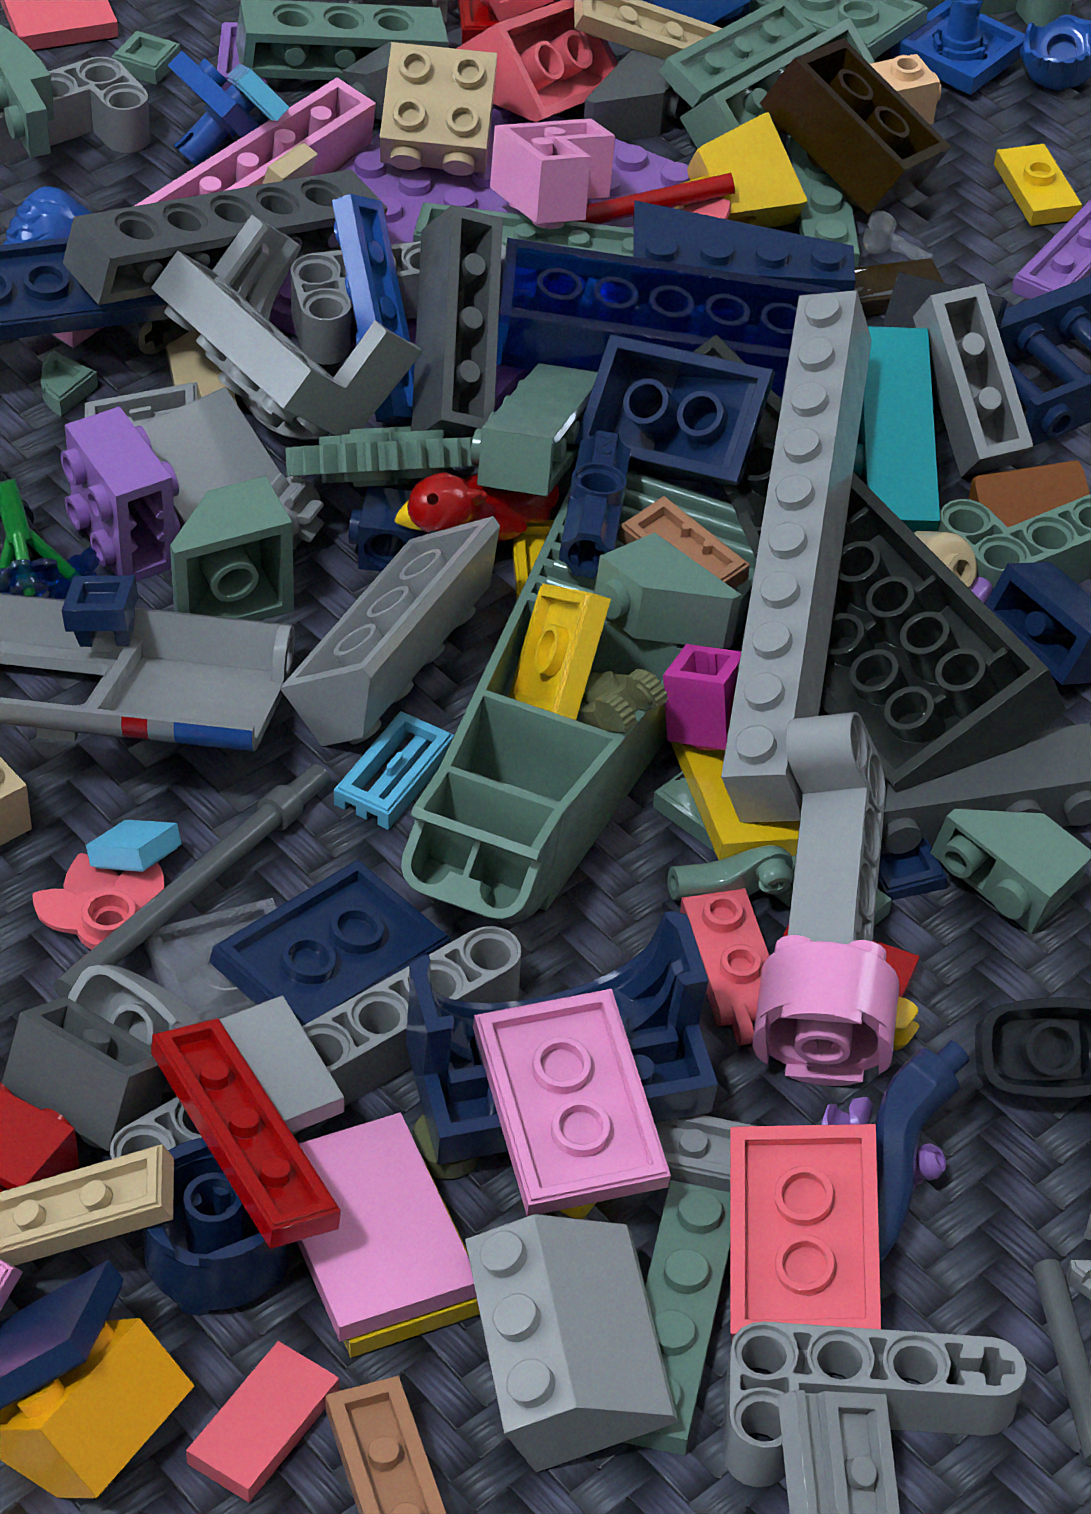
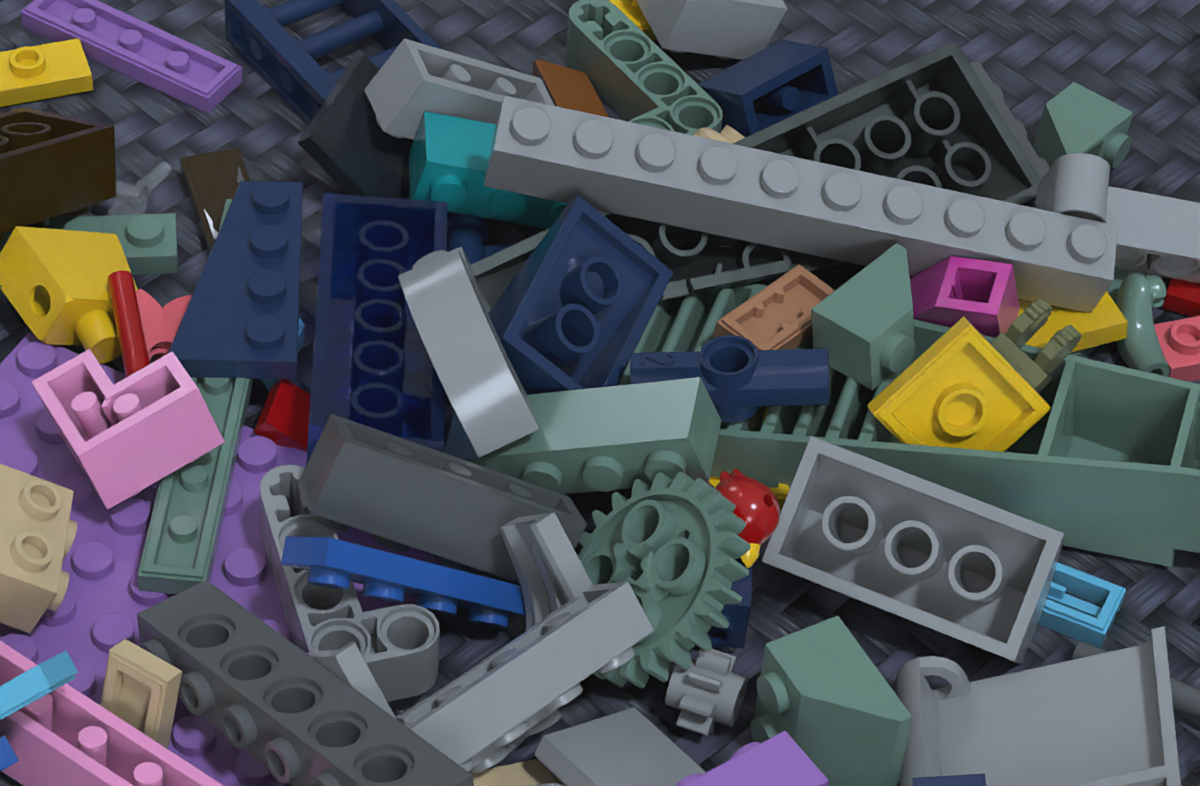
camera: 95 degrees left, 0 degrees up
(597, 303) = (467, 350): none -> light grey arch

